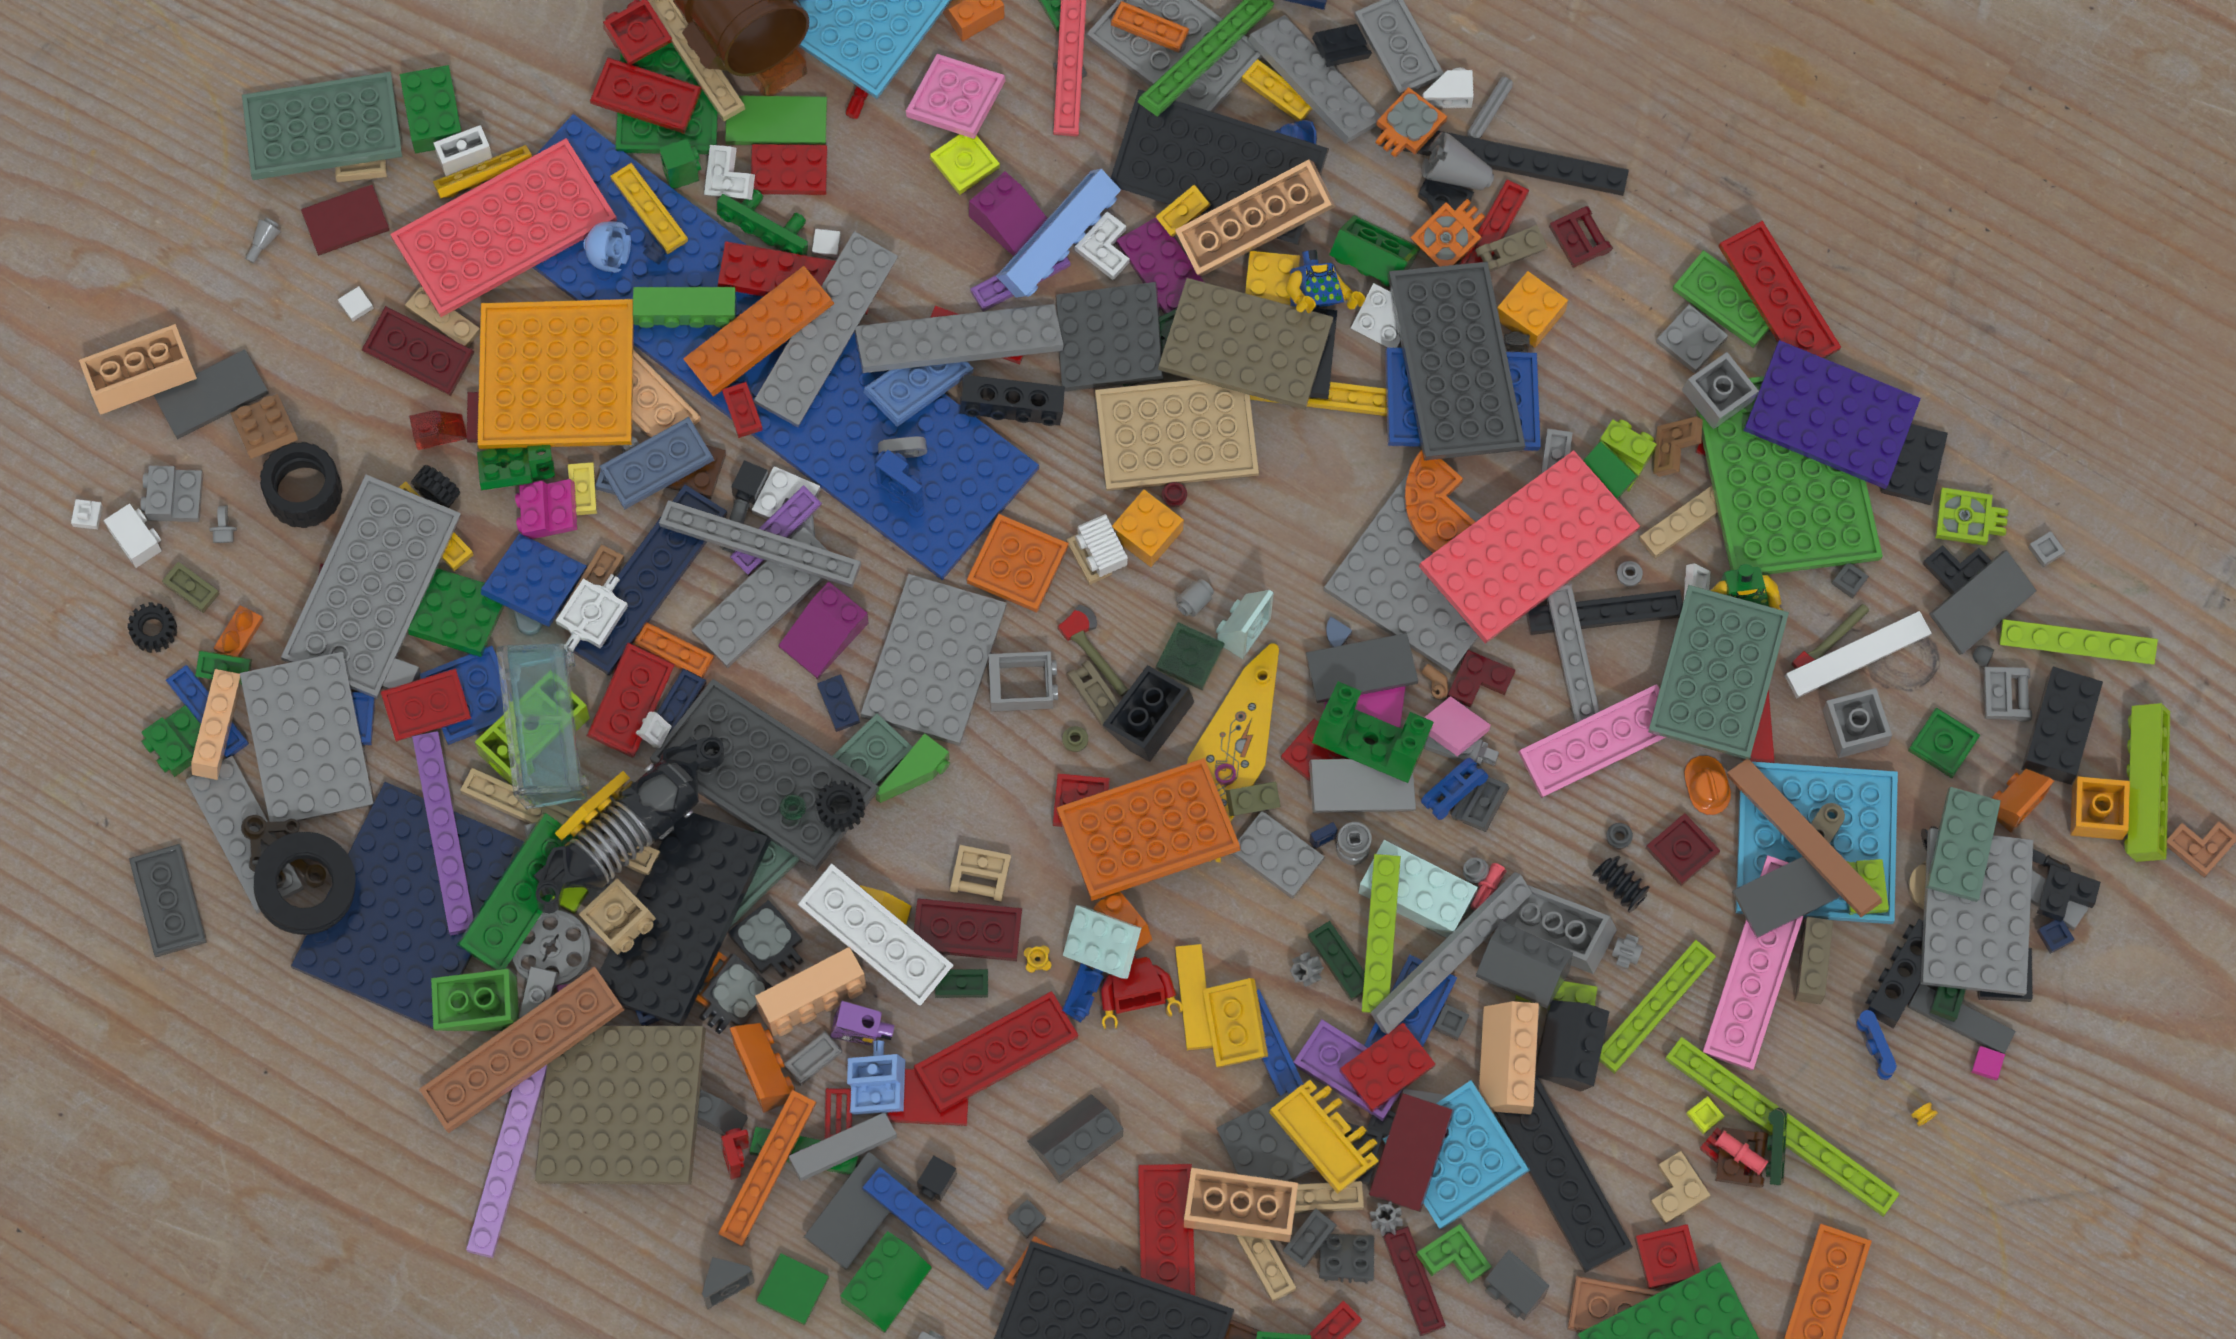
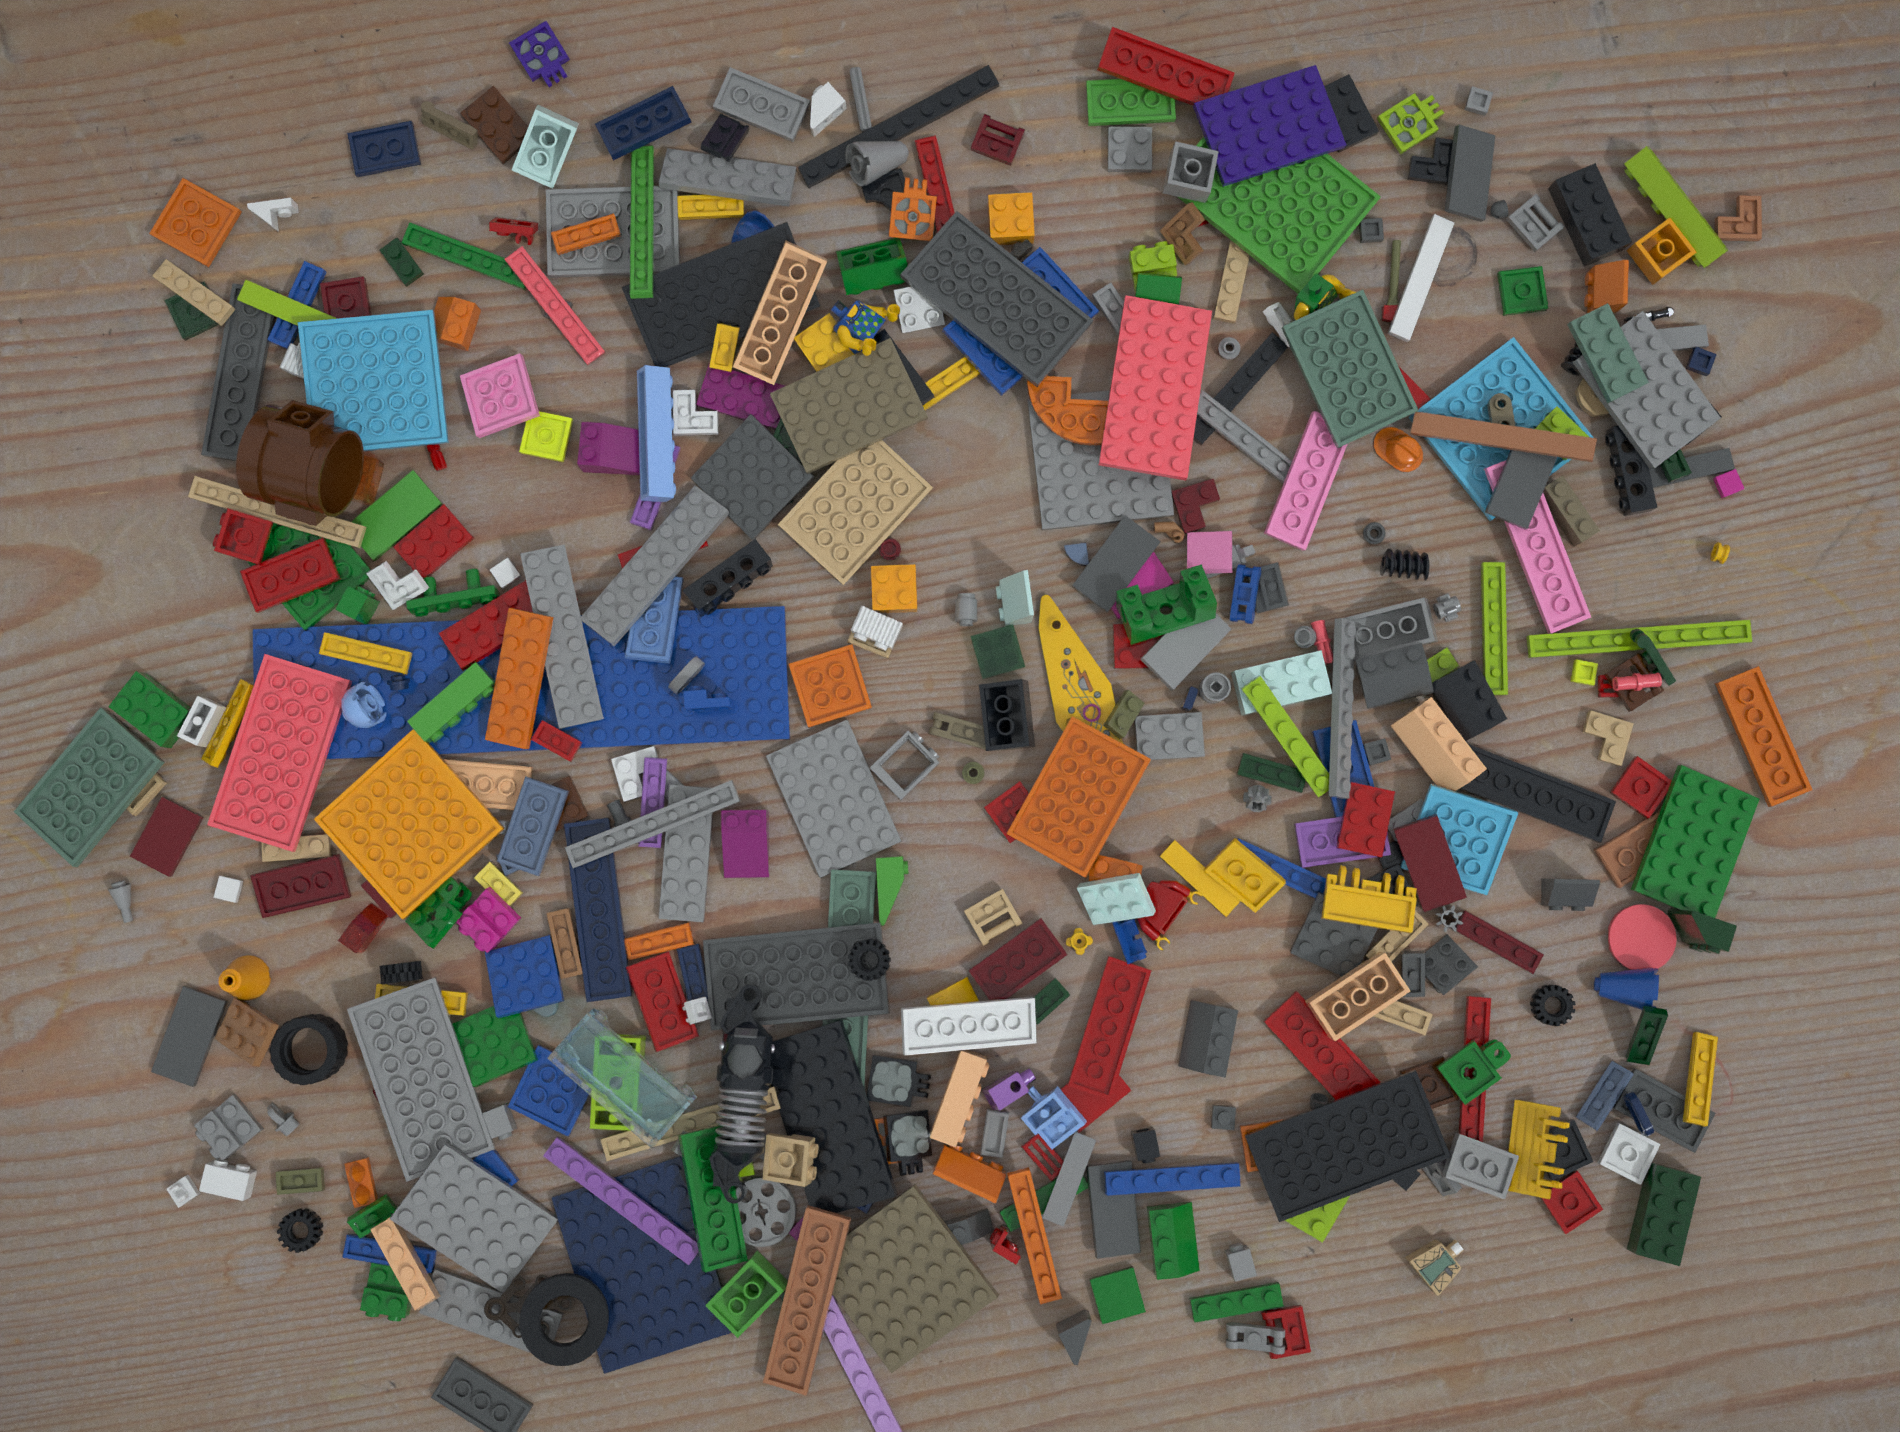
camera: 40 degrees left, 15 degrees up
(137, 369) = (123, 1067): light nougat brick -> none
(301, 385) = (245, 978): none -> light orange cone
(425, 705) = (532, 1127): red tile -> none
(538, 988) = (780, 1249): light grey plate -> none
(589, 809) = (707, 1099): yellow plate -> none
(591, 613) = (584, 968): white plate -> none
(749, 482) = (605, 785): black brick -> none
(789, 801) = (831, 986): clear green plate -> none
(838, 703) = (798, 882): dark blue plate -> none
(1074, 629) = (905, 698): piece -> none
(1409, 123) = (818, 155): piece -> none
(1454, 1248) = (1506, 900): bright green plate -> none
(1512, 248) = (961, 185): dark tan plate -> none
(1682, 849) = (1422, 507): dark red plate -> none
(1857, 723) = (1462, 326): light grey brick -> none
(1877, 1044) = (1653, 532): blue plate -> none
(2063, 887) = (1680, 327): black plate -> none
(2078, 641) = (1550, 148): lime plate -> none

